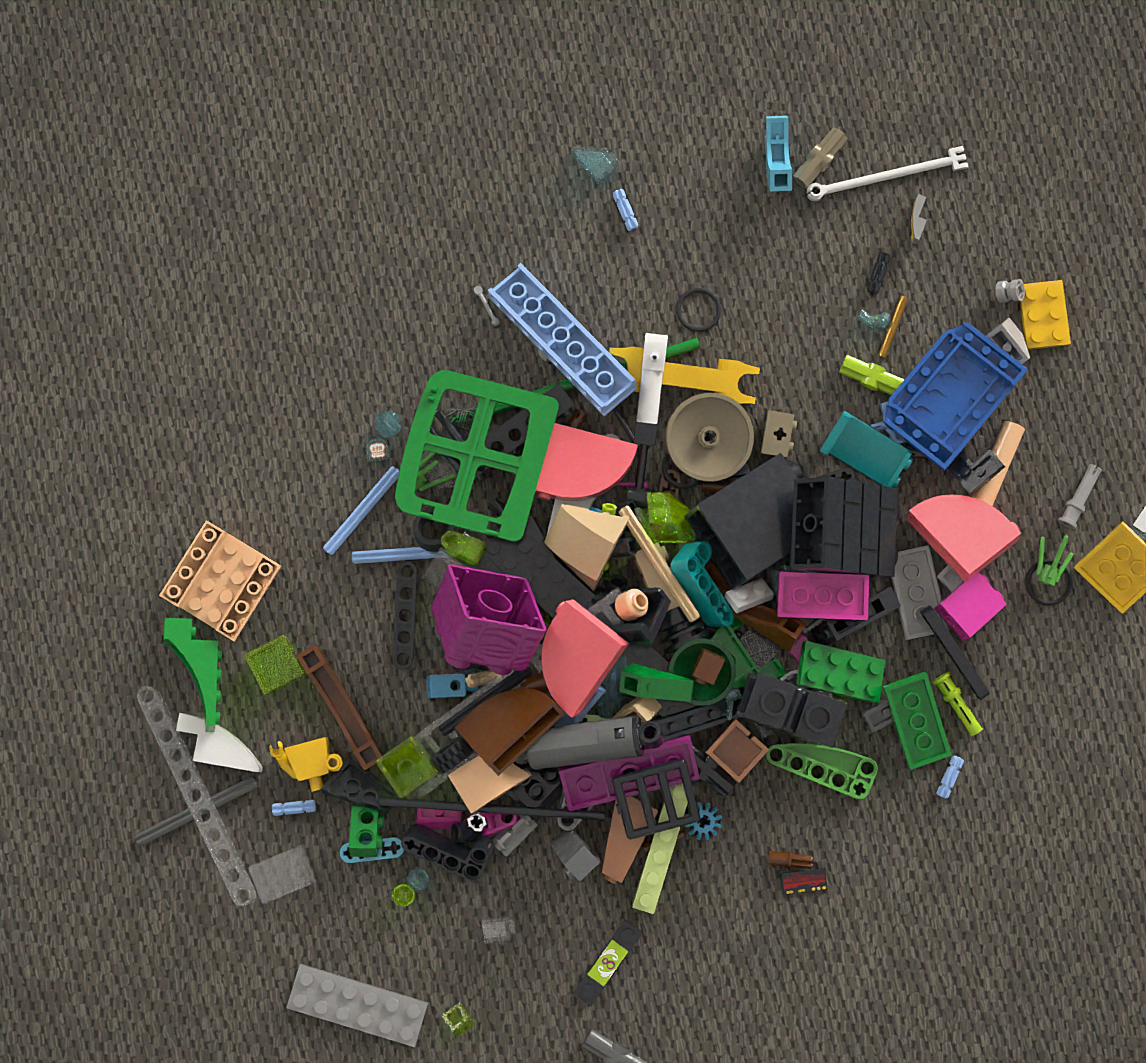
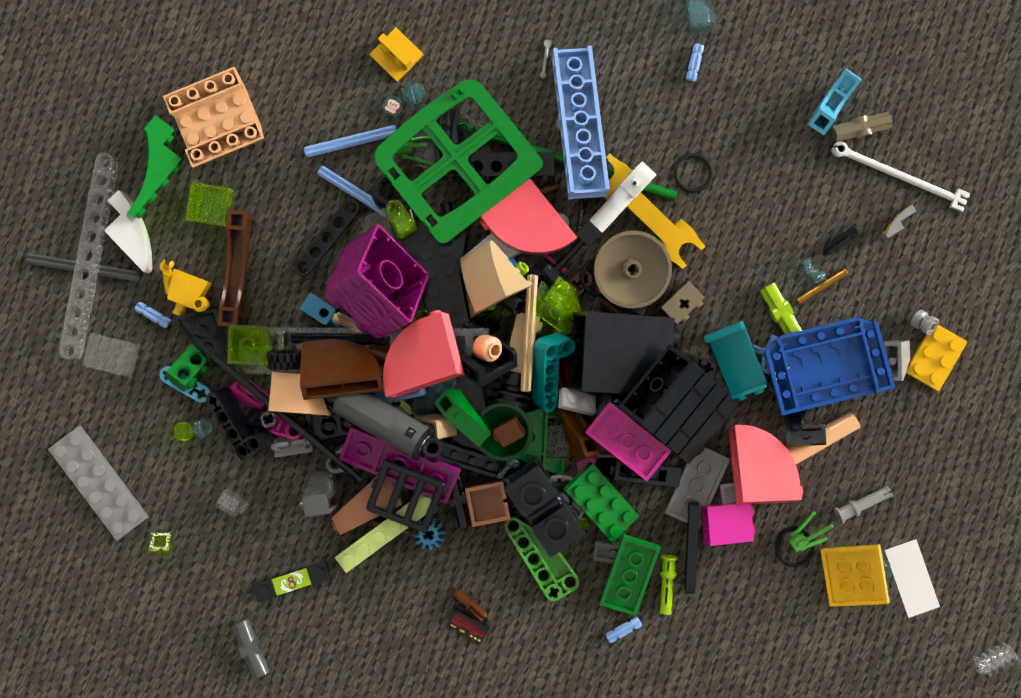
camera: 30 degrees right, 5 degrees up
(346, 400) = (396, 54): none -> yellow bracket

